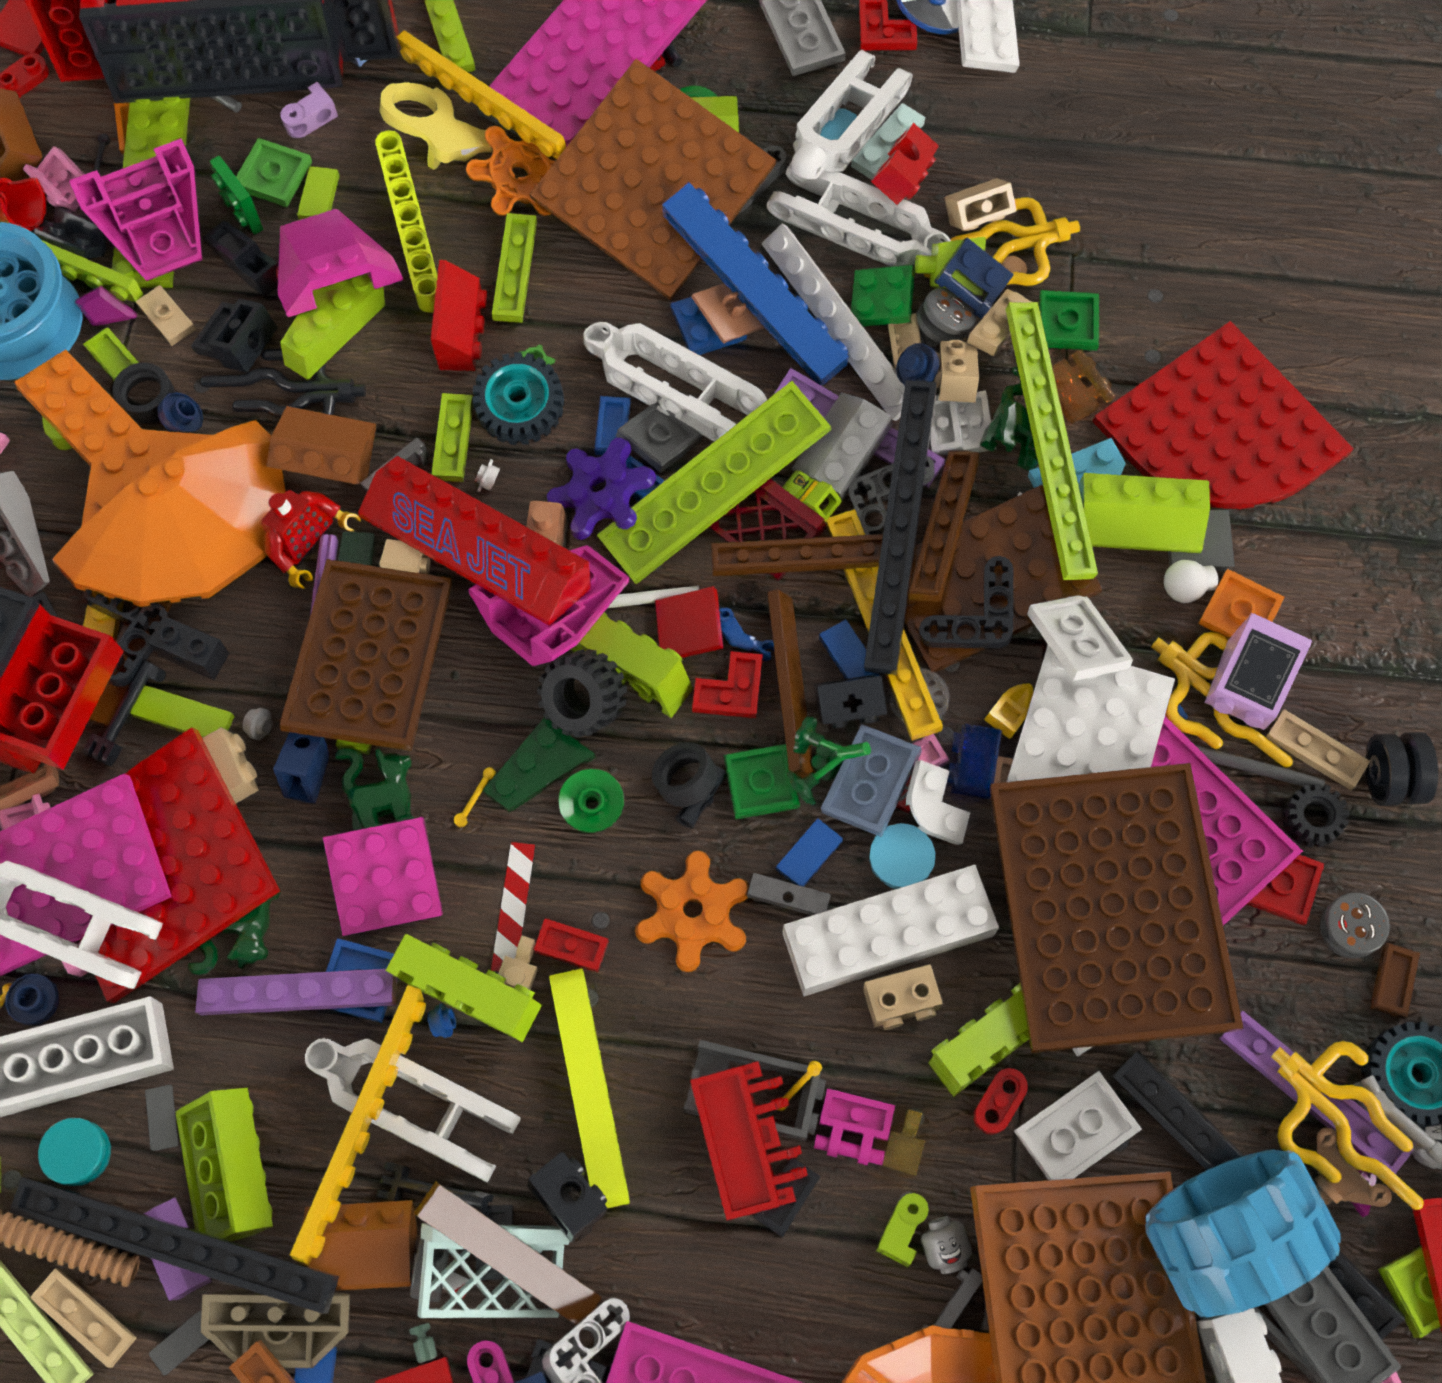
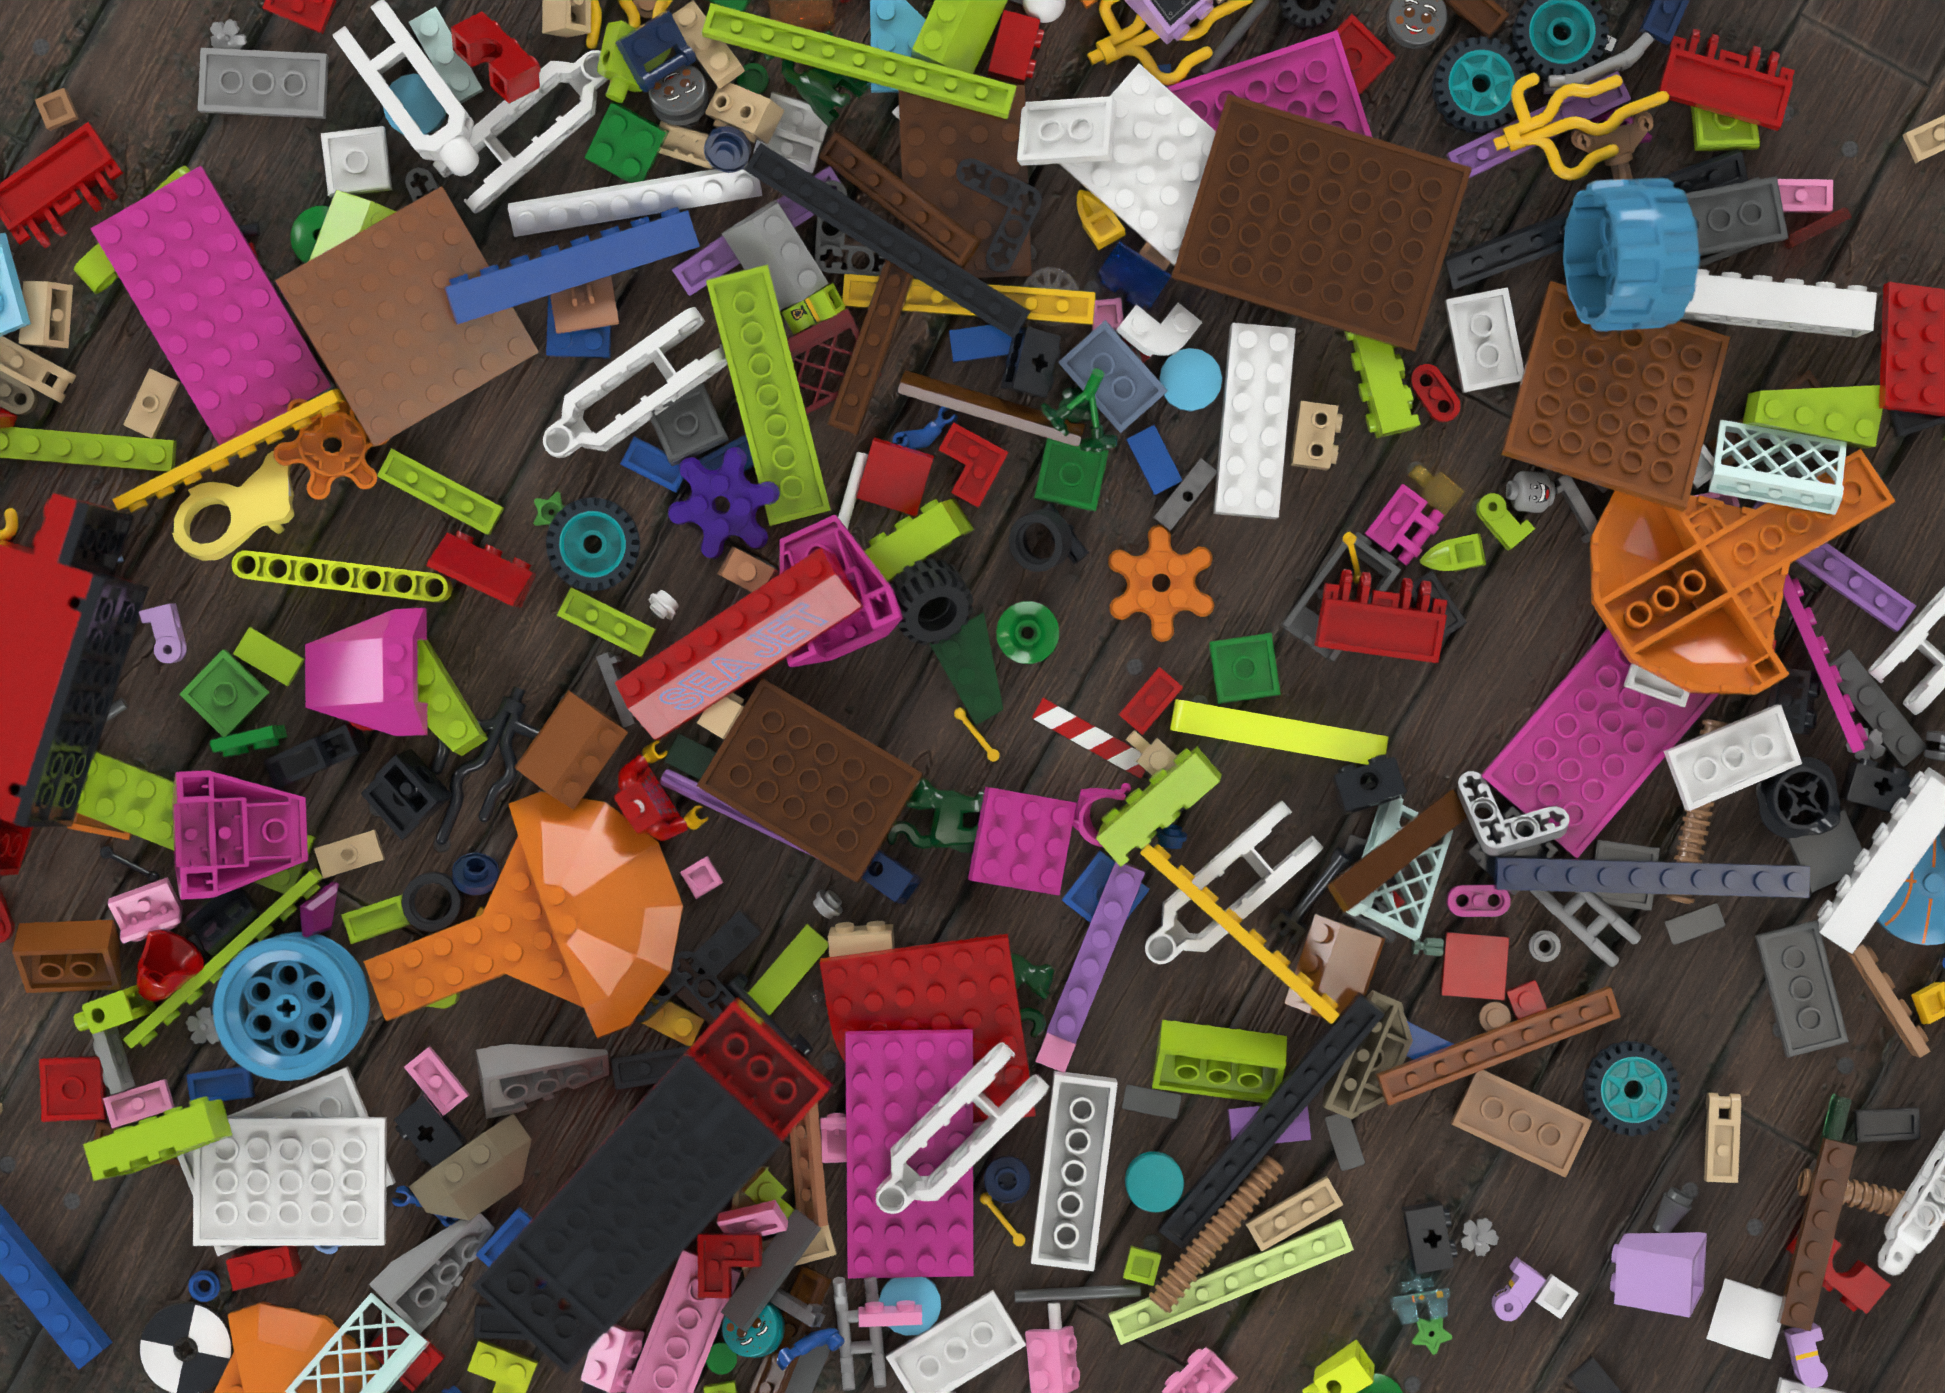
camera: 65 degrees left, 20 degrees up
(180, 998) = (1055, 1052): none -> bright pink tile
(246, 606) = (701, 877): none -> bright pink tile
(426, 929) = (1082, 820): none -> dark pink helmet
(497, 39) = (151, 403): none -> tan plate
(641, 1025) = (1244, 668): none -> green plate
(768, 108) = (356, 161): none -> white plate
(848, 1194) = (1455, 554): none -> lime plate
(990, 375) = (754, 78): none -> green tile
(1131, 573) = (1014, 48): none -> red brick
(1340, 995) = (1454, 88): none -> wheel

